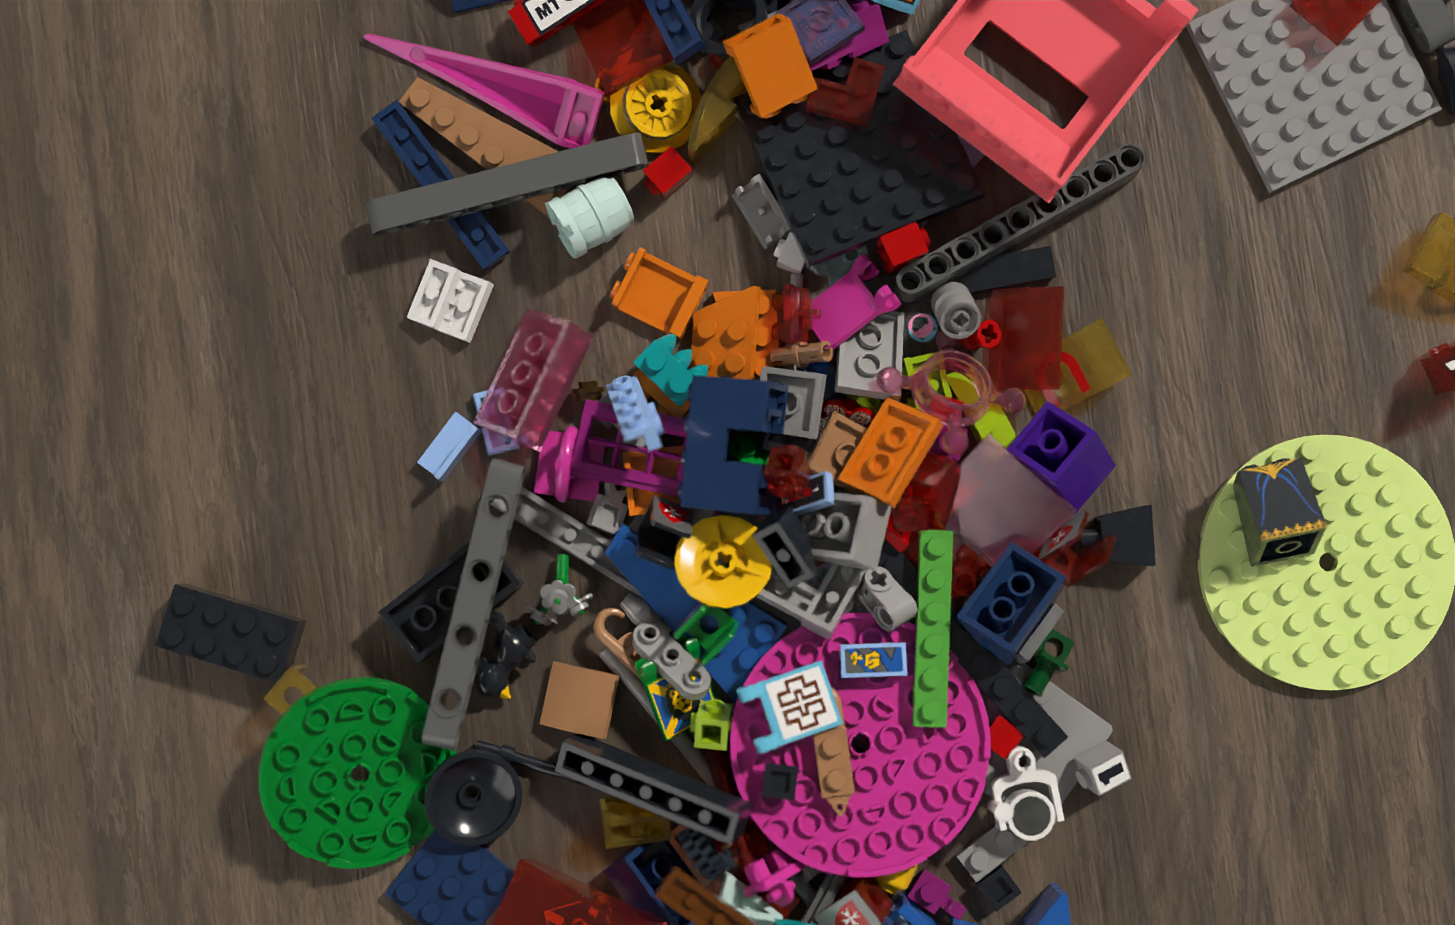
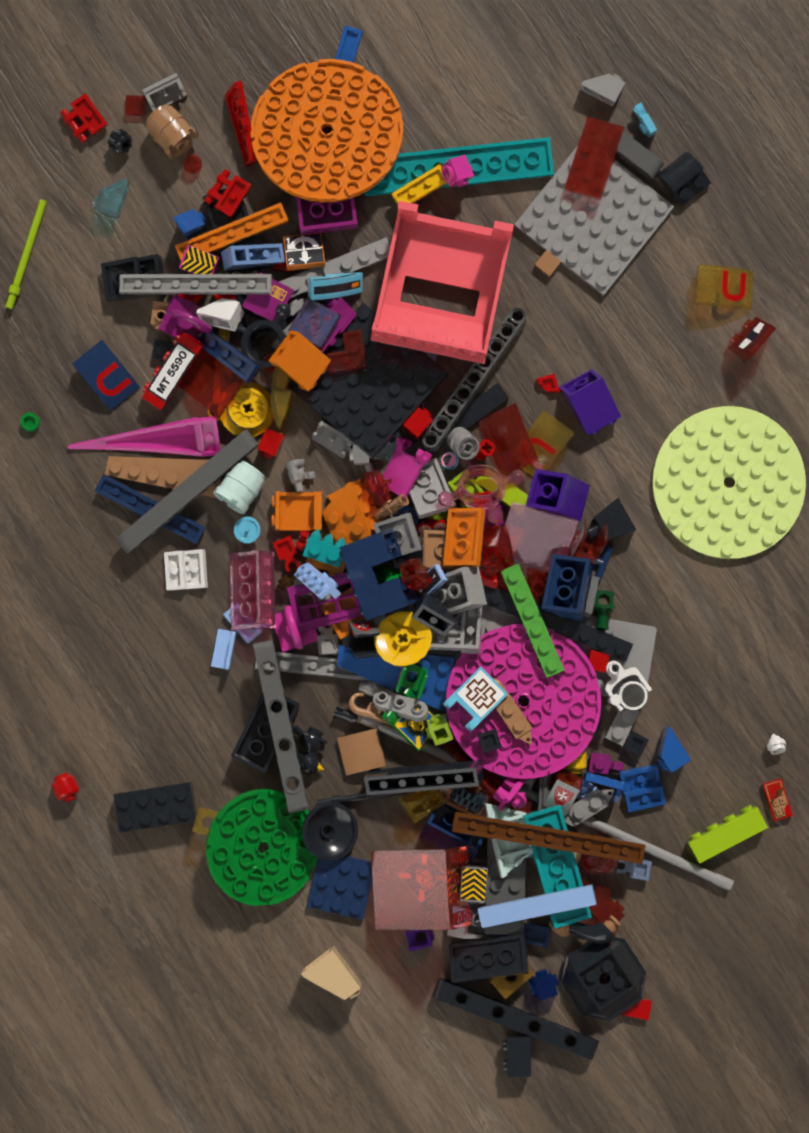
camera: 25 degrees left, 0 degrees up
(111, 538) = (65, 787): none -> red head
(559, 596) = (323, 701): light grey plant -> none
(569, 284) = (247, 530): none -> medium azure piece
(582, 634) = (345, 715): none -> black pin
(612, 342) = (285, 550): none -> red plate
(644, 339) = (302, 541): none -> red plate
(684, 237) = (296, 473): none -> light grey piece
(873, 660) = (508, 653): tile -> none
(888, 602) = (501, 618): light grey piece -> none
(1078, 591) = (602, 563): none -> dark blue piece
(1102, 768) = (660, 652): brick -> none
(1125, 284) = (548, 383): none -> red tile
(1177, 340) = (590, 401): none -> dark purple slope
(1210, 104) = (547, 263): none -> medium nougat tile
(1278, 511) = (687, 469): black slope -> none

